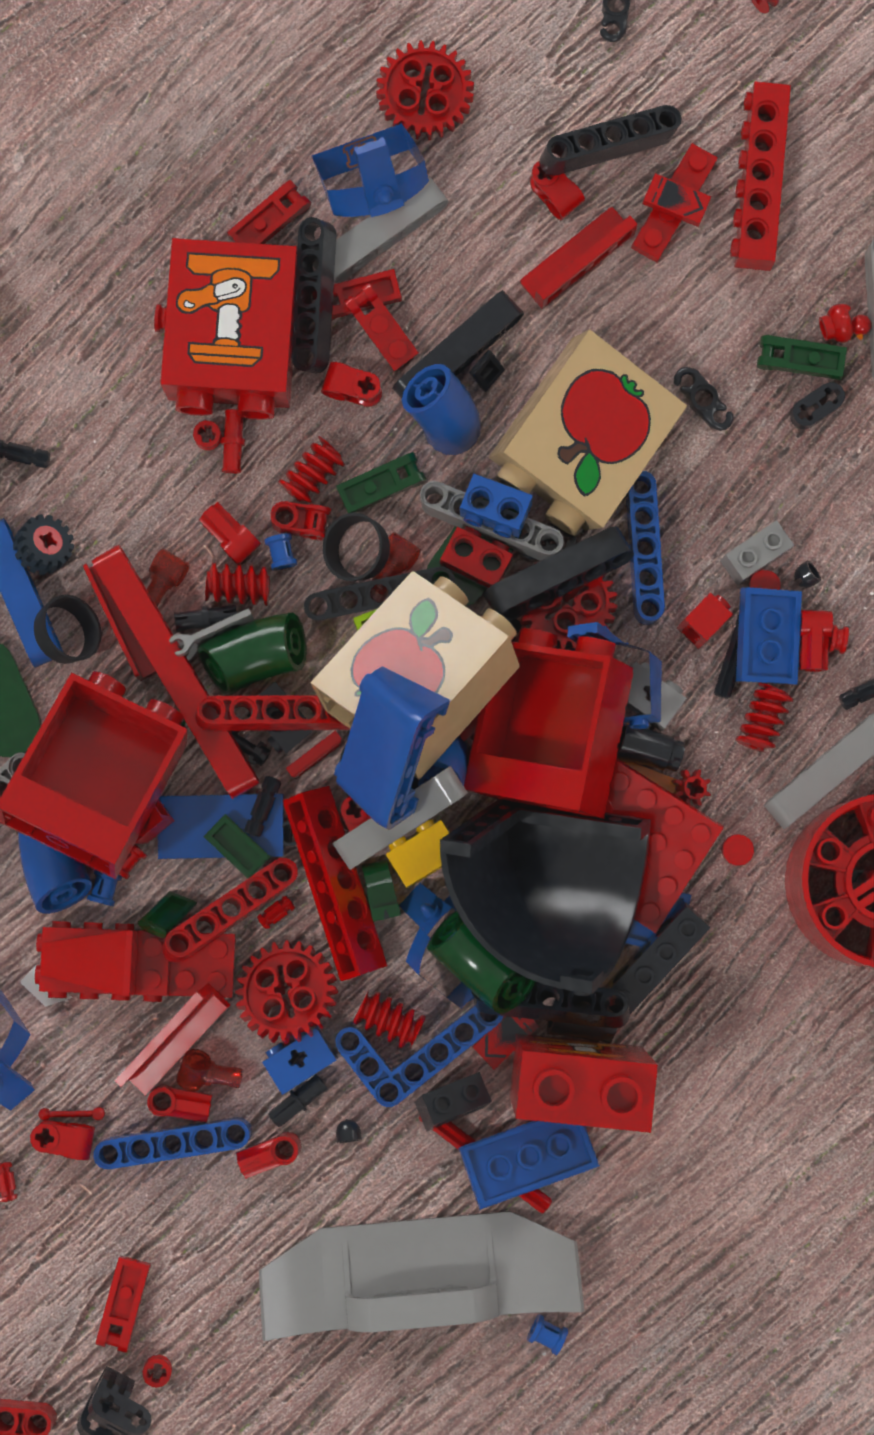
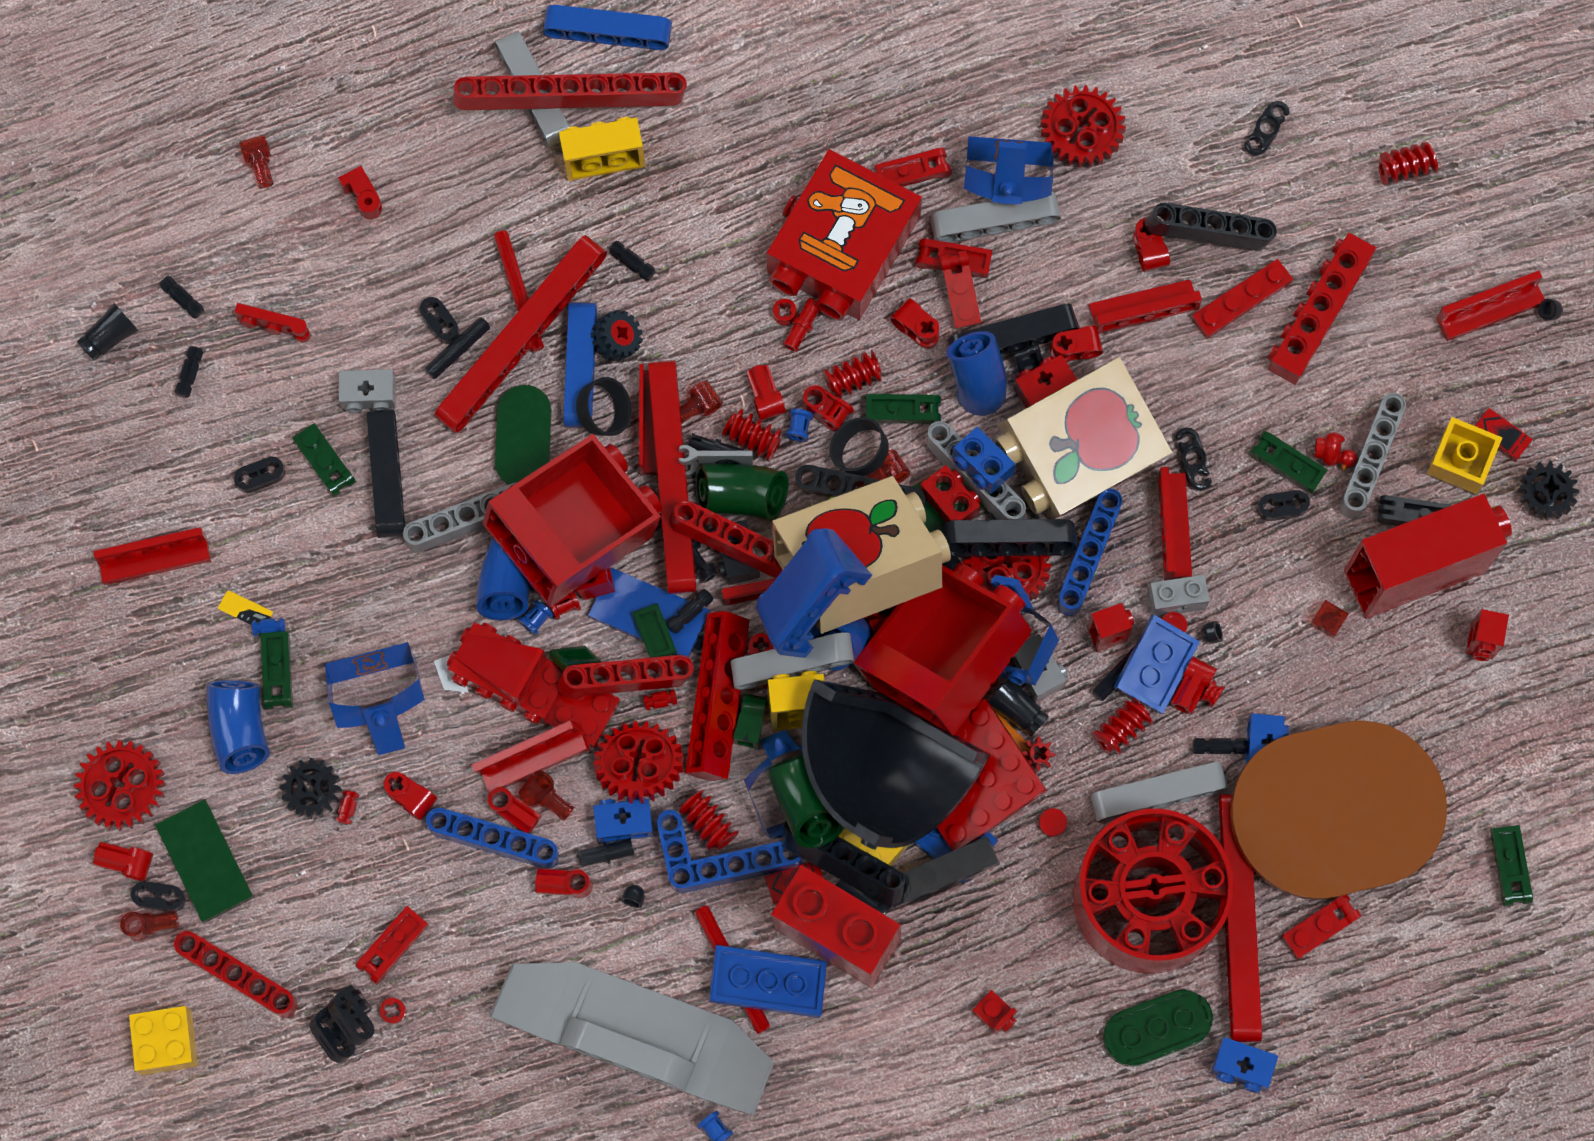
camera: 30 degrees right, 10 degrees down
(98, 1113) = (444, 789): red hinge -> none
(306, 282) = (918, 254): black beam -> none
(452, 1101) = (728, 907): black brick -> none
(515, 370) = (1050, 369): none -> red brick
(532, 328) = (1080, 344): none -> red piece
(676, 200) = (1243, 295): red tile -> none
(716, 478) = (1174, 524): none -> red fence
(773, 1076) = (995, 1013): none -> red bracket

